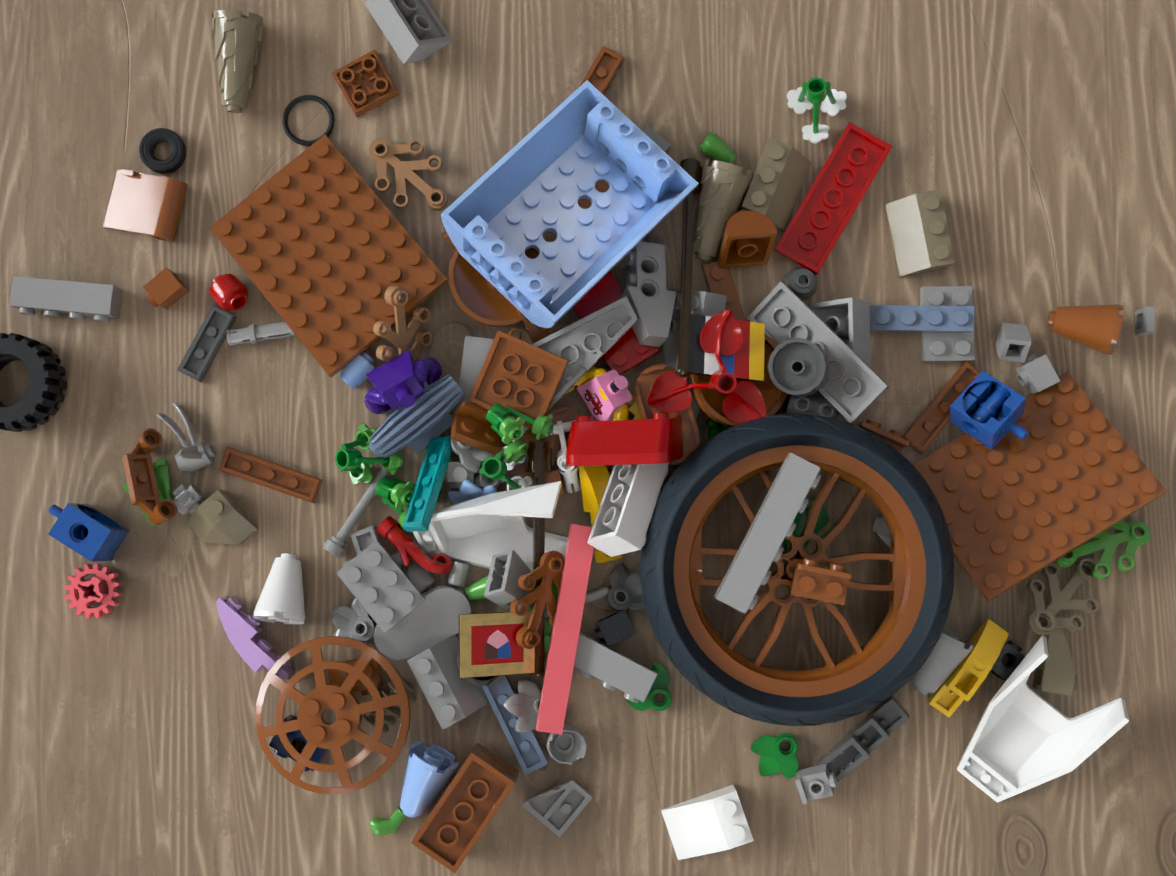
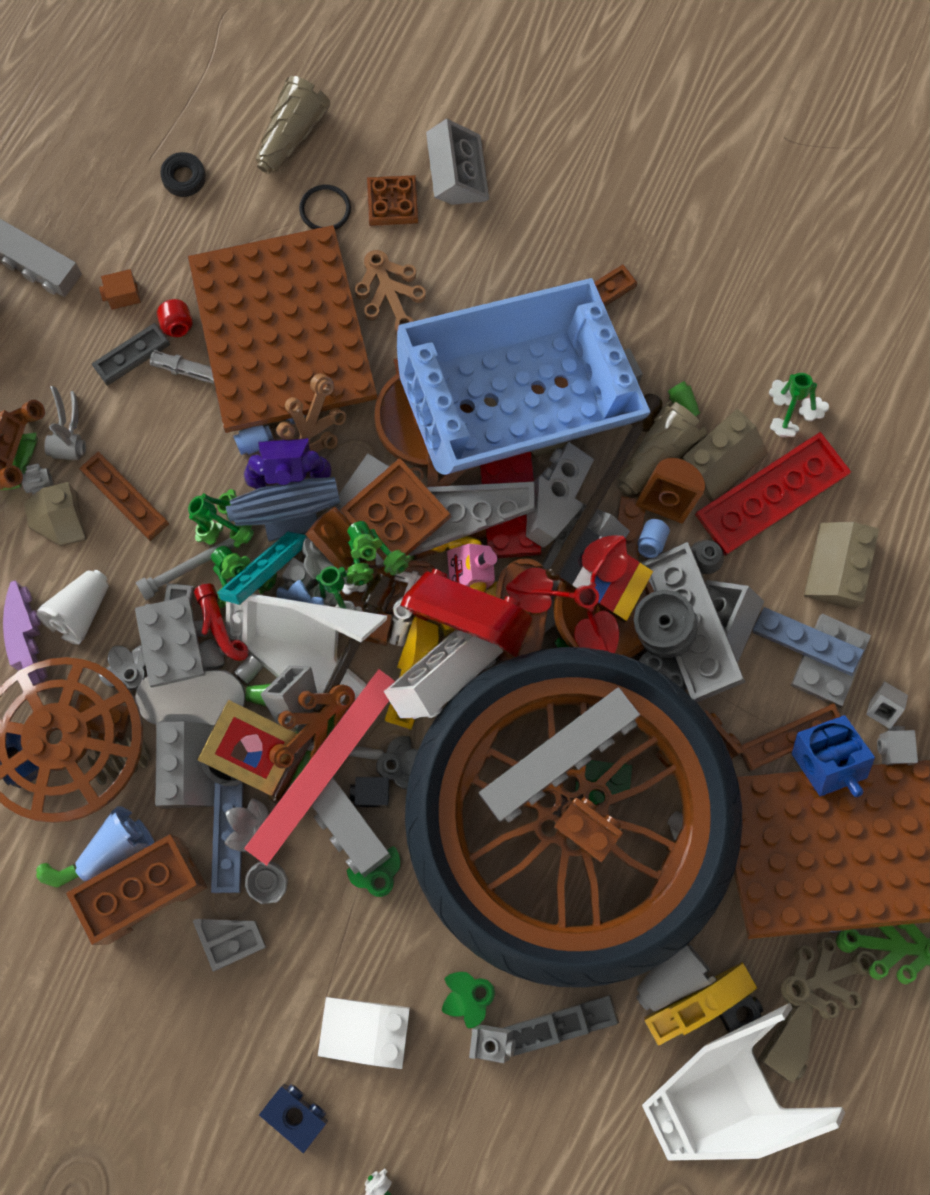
camera: 20 degrees right, 10 degrees down
(145, 204) = (143, 211): door -> none
(748, 290) = (653, 538): none -> light blue brick

